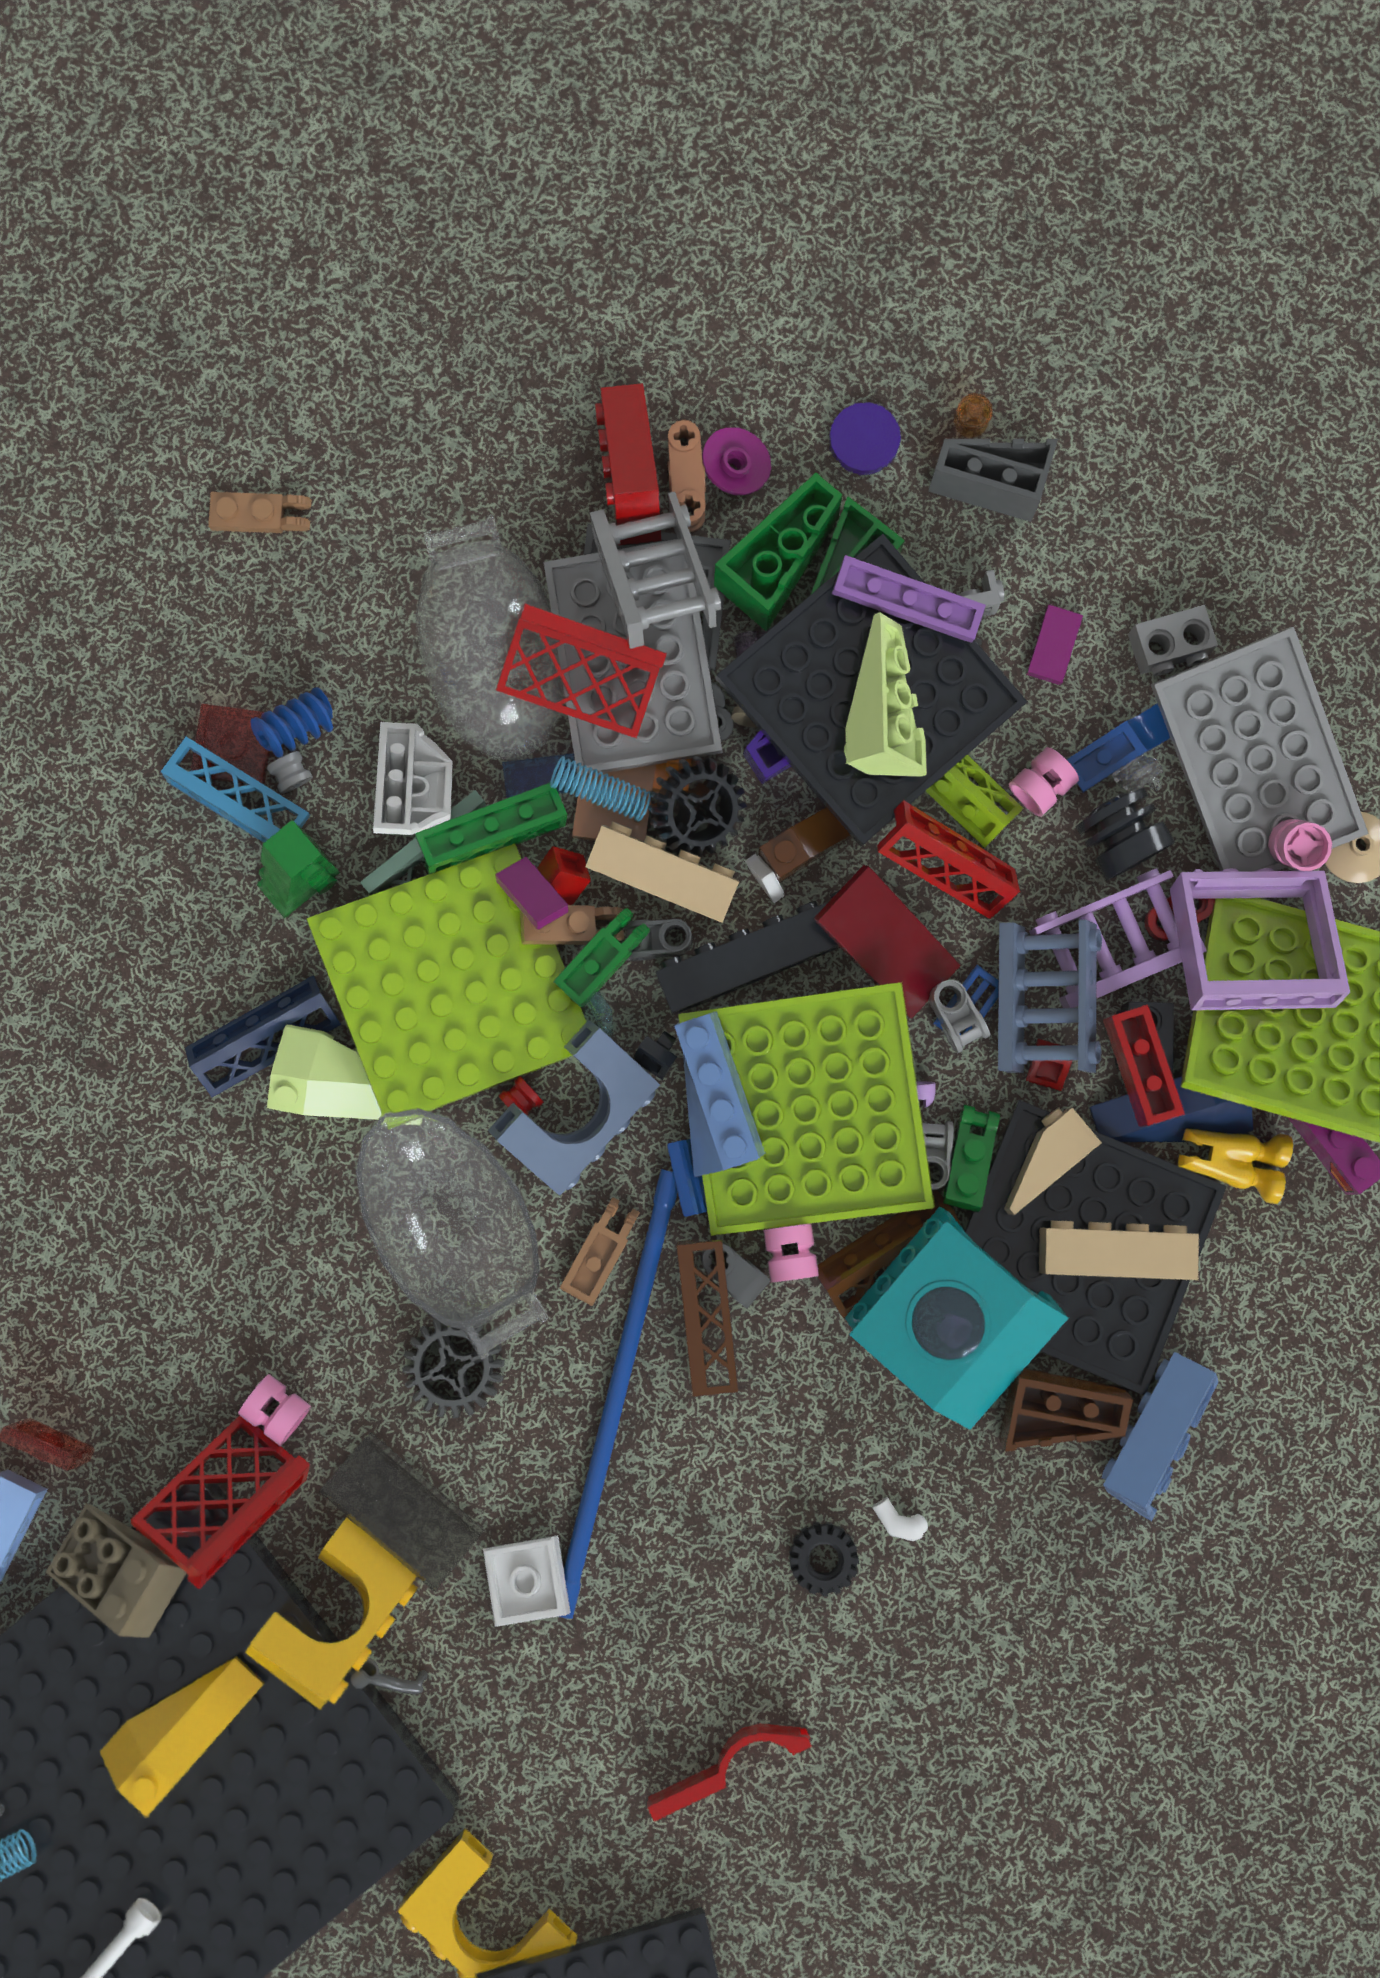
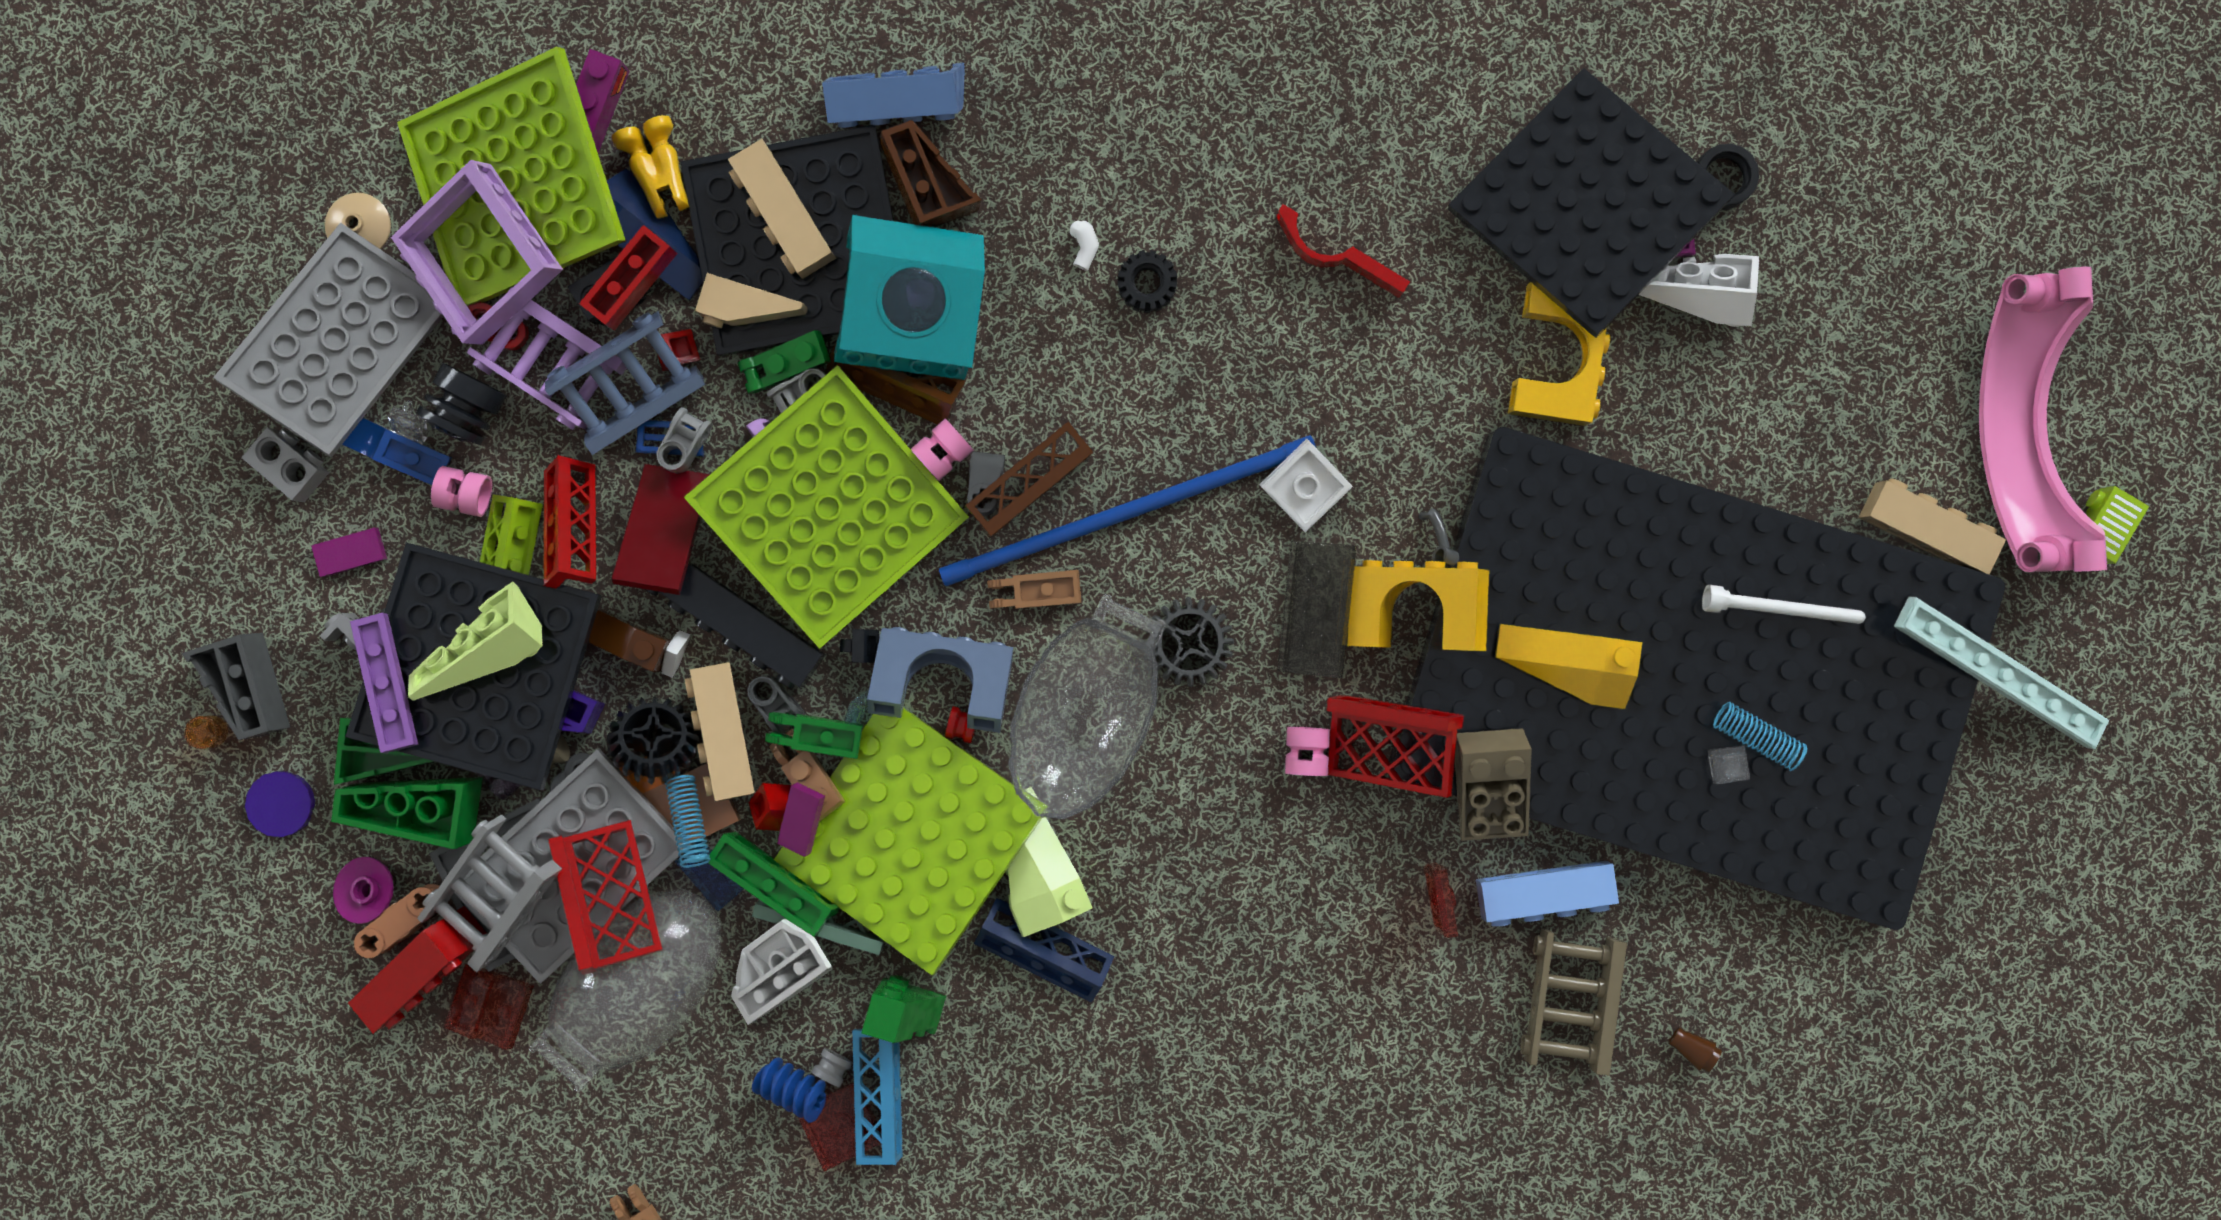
camera: 125 degrees left, 5 degrees up
(556, 503) = (488, 1007): none -> clear red slope
(689, 1188) = (936, 562): blue tile -> none
(718, 1110) = (869, 573): medium blue wedge -> none
(1300, 844) = (382, 267): bright pink wheel -> none

